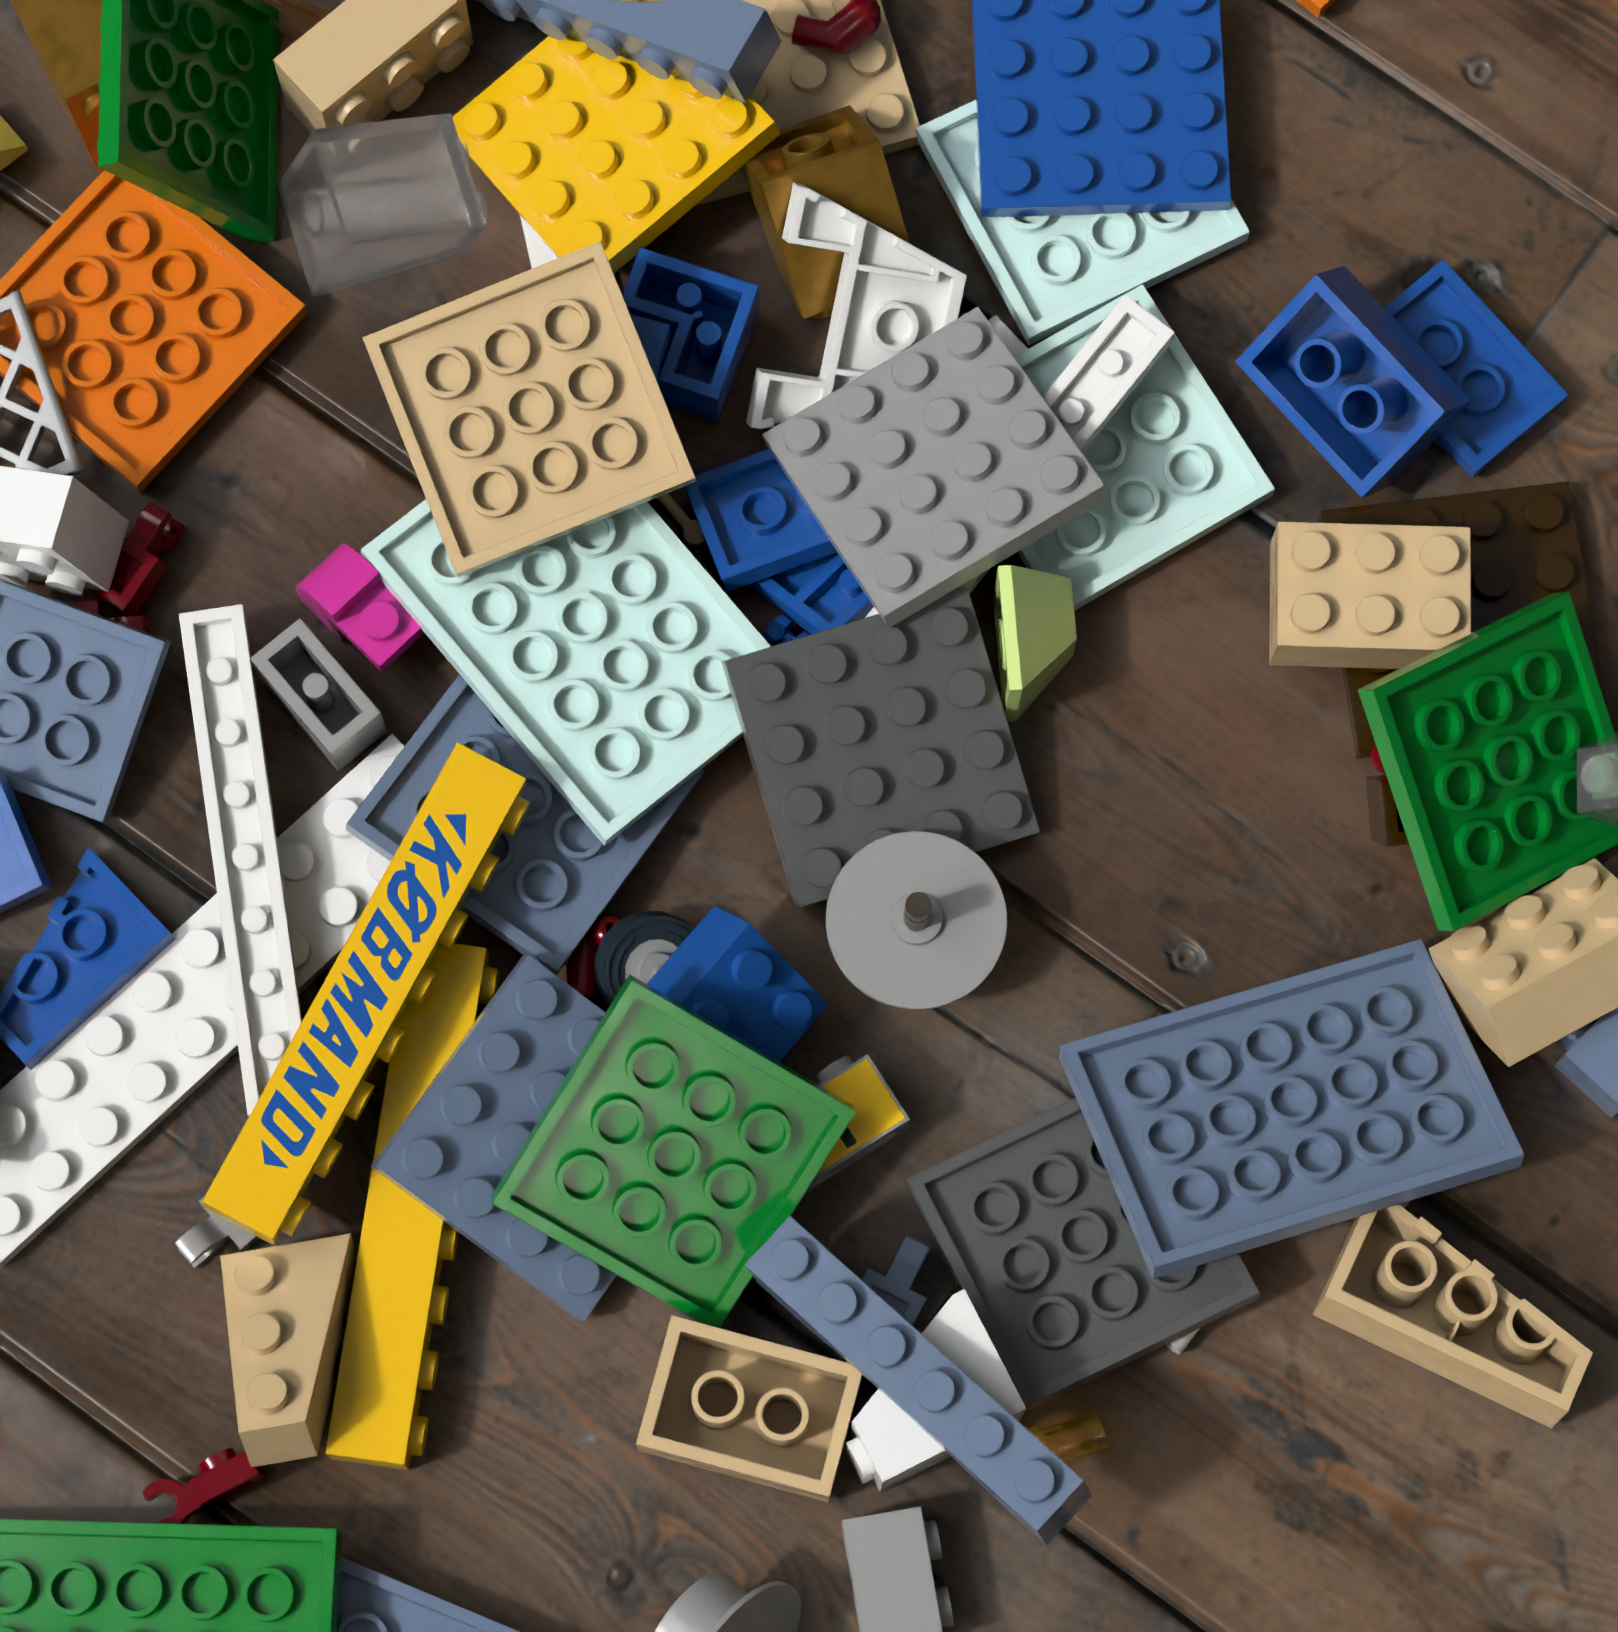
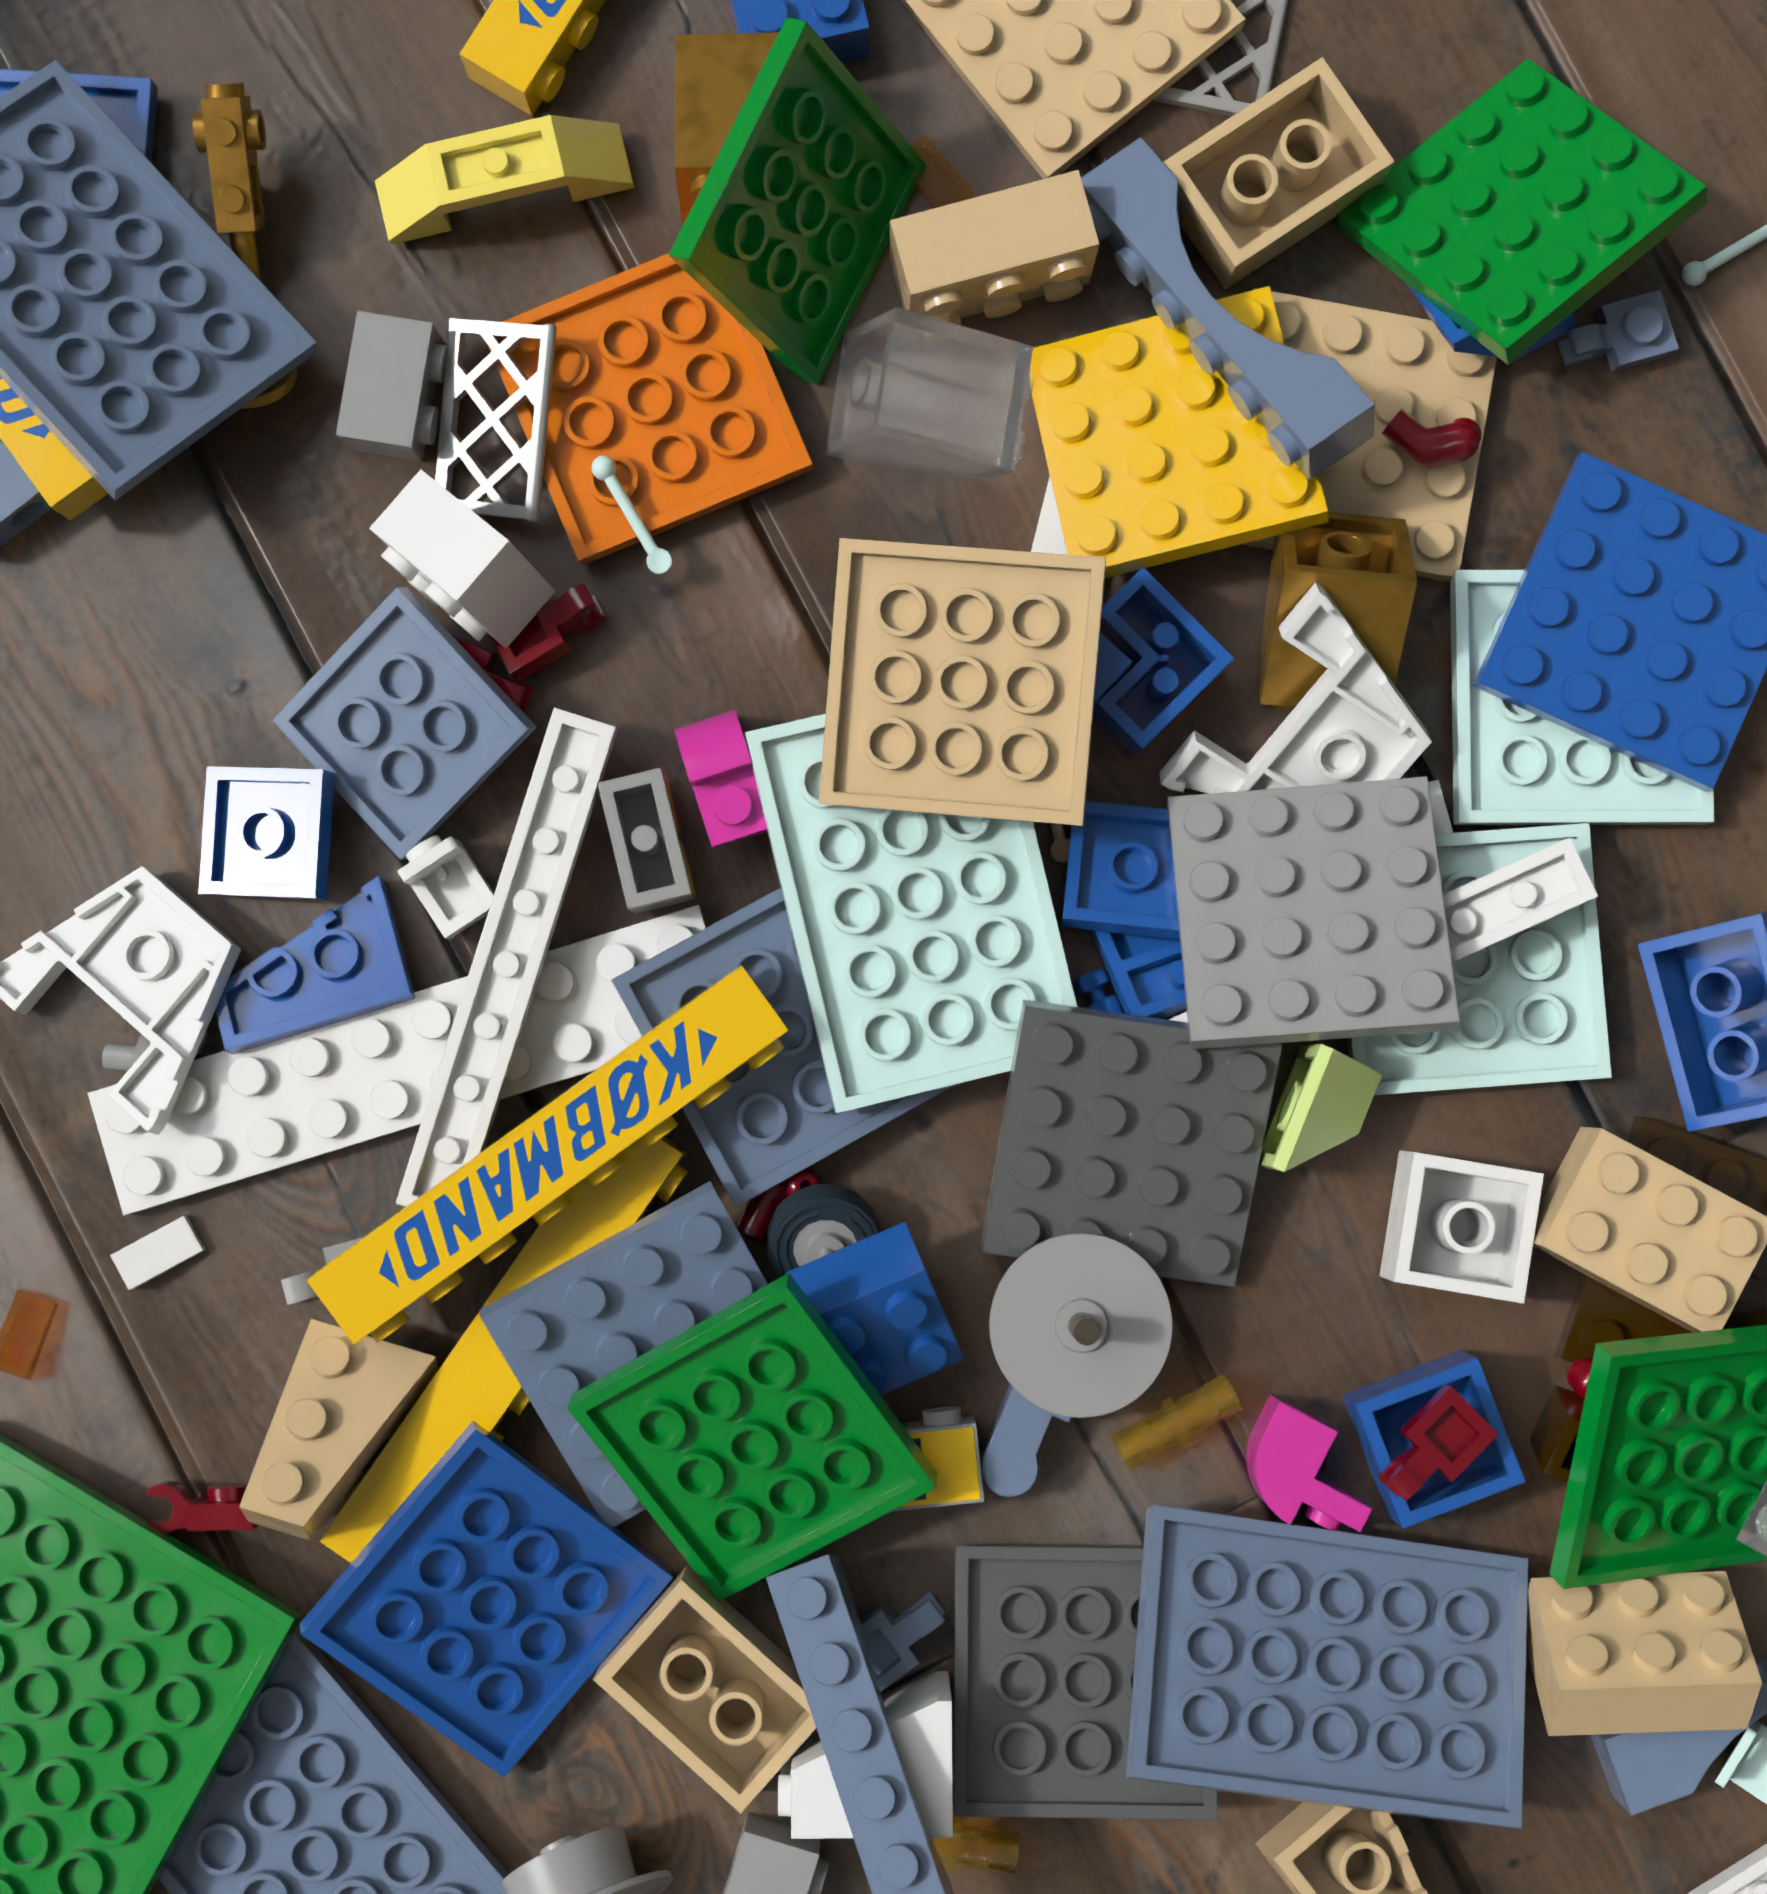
camera: 25 degrees right, 10 degrees up
(47, 1284) = (157, 1252): none -> white piece
(156, 822) = (447, 884): none -> white bracket
(208, 450) = (658, 559): none -> light aqua hinge
(505, 1430) = (486, 1600): none -> blue plate
(911, 1058) = (1012, 1444): none -> sand blue leg
(1049, 975) = (1176, 1422): none -> clear yellow pin
(1162, 961) = (1283, 1466): none -> dark pink brick
(1208, 675) = (1461, 1226): none -> white brick
(1278, 870) = (1387, 1406): none -> blue brick
(1279, 851) = (1444, 1438): none -> dark red plate

